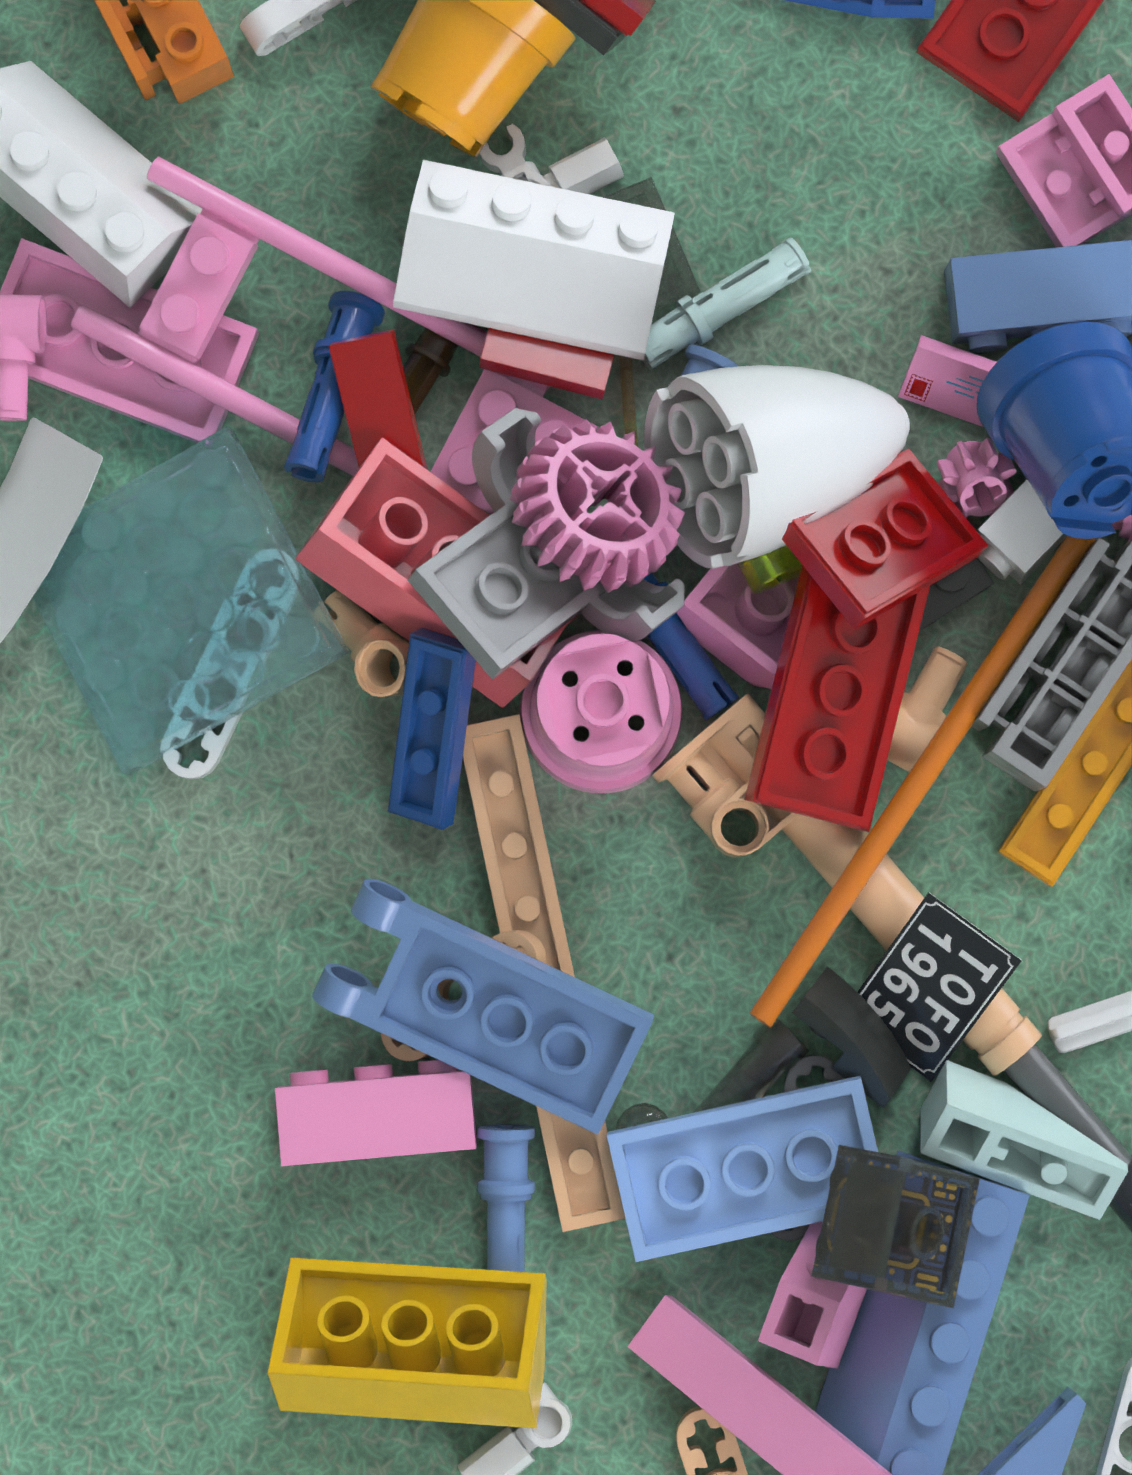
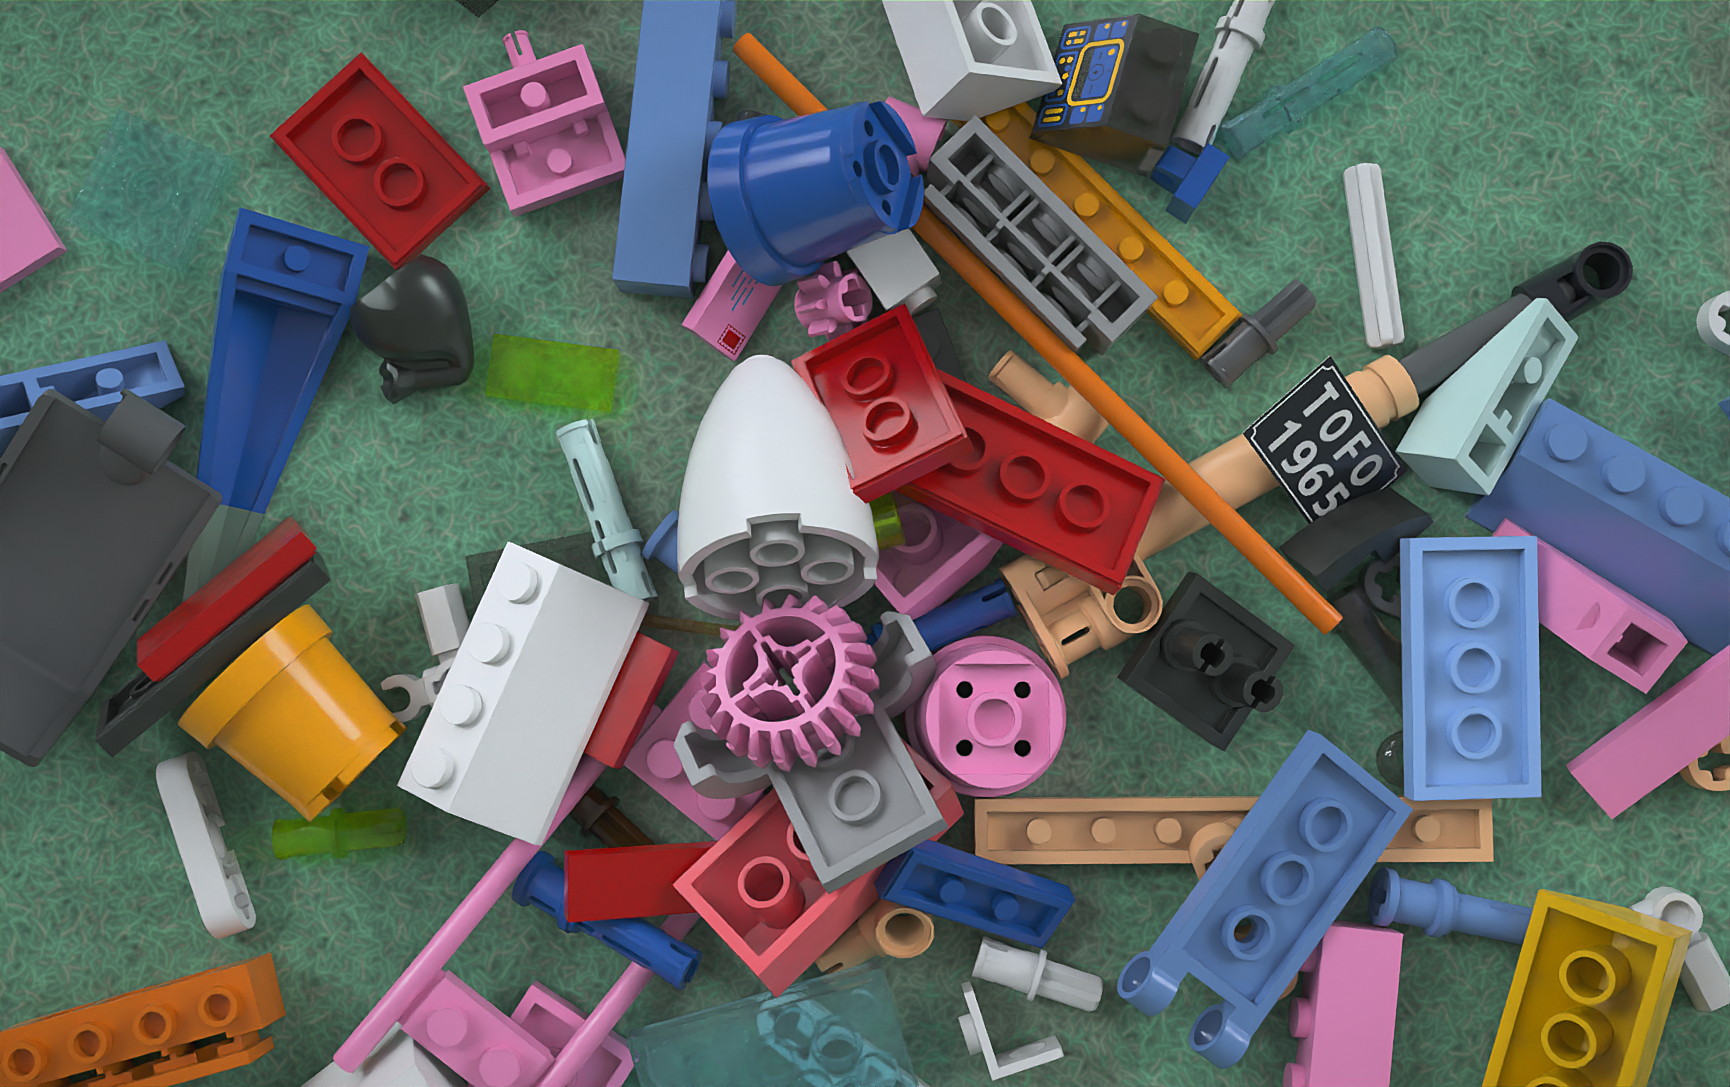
camera: 75 degrees left, 0 degrees up
(289, 765) = (1009, 1061): none -> white bracket
(361, 116) = (339, 833): none -> clear neon green axle
(361, 809) = (1036, 975): none -> white axle
(699, 913) = (1208, 662): none -> pearl dark grey plate
(847, 223) = (553, 373): none -> clear neon green plate
(863, 82) = (418, 327): none -> pearl dark grey piece
(895, 1226) = (1572, 538): clear smoke slope -> none
(1037, 906) = (1258, 333): none -> dark grey axle

